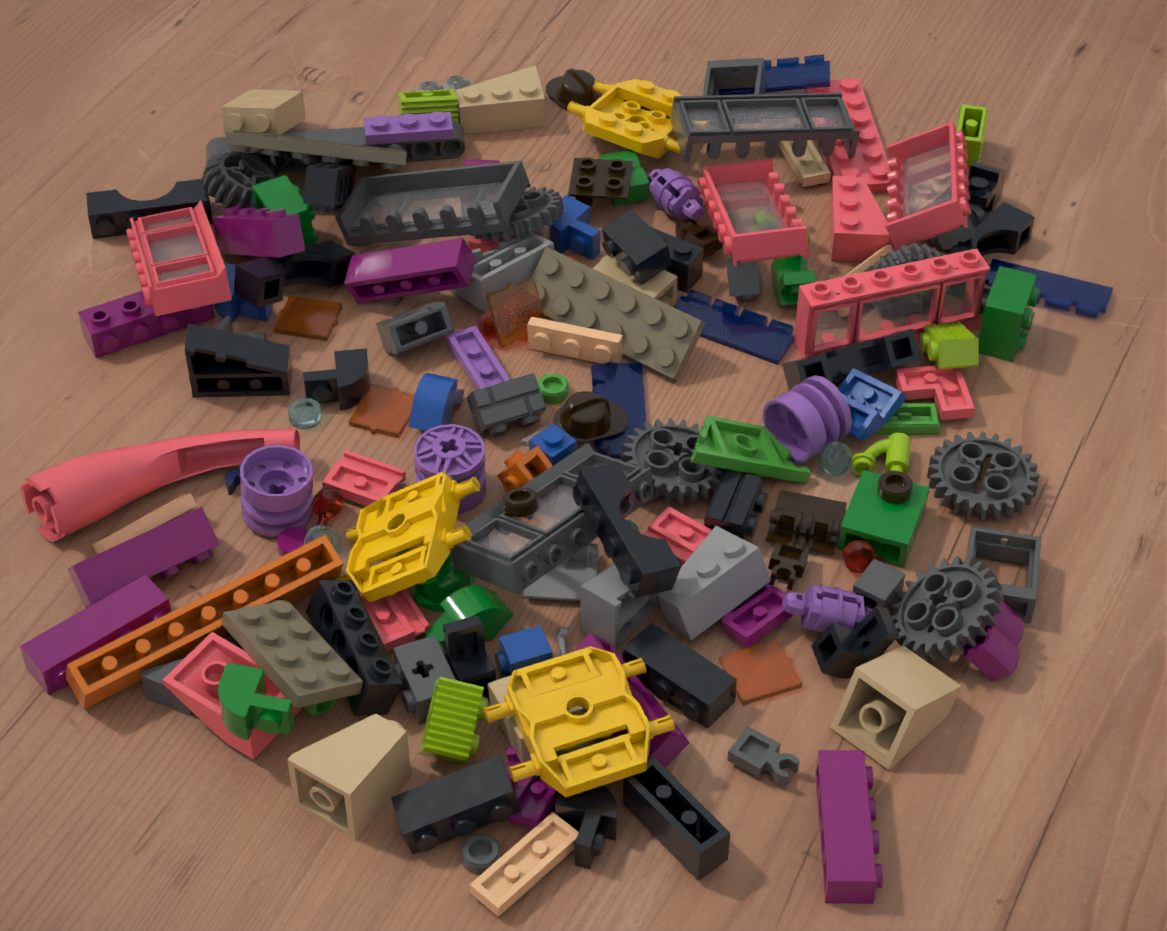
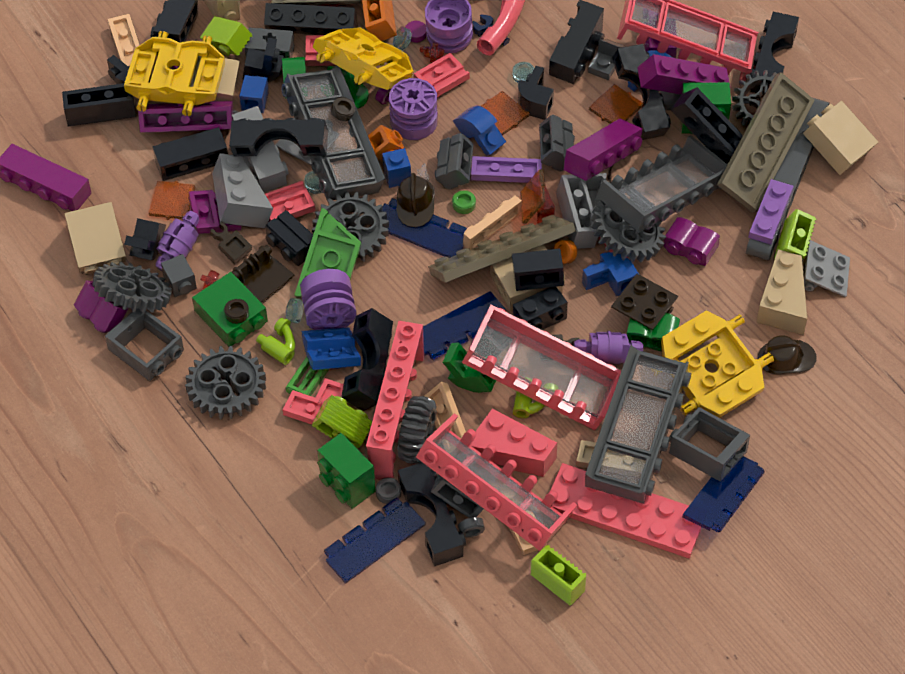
camera: 120 degrees right, 10 degrees up
(479, 853) = (144, 31): dark grey tile -> none
(760, 754) = (114, 165): dark grey plate -> none
(985, 185) = (494, 544): black brick -> none

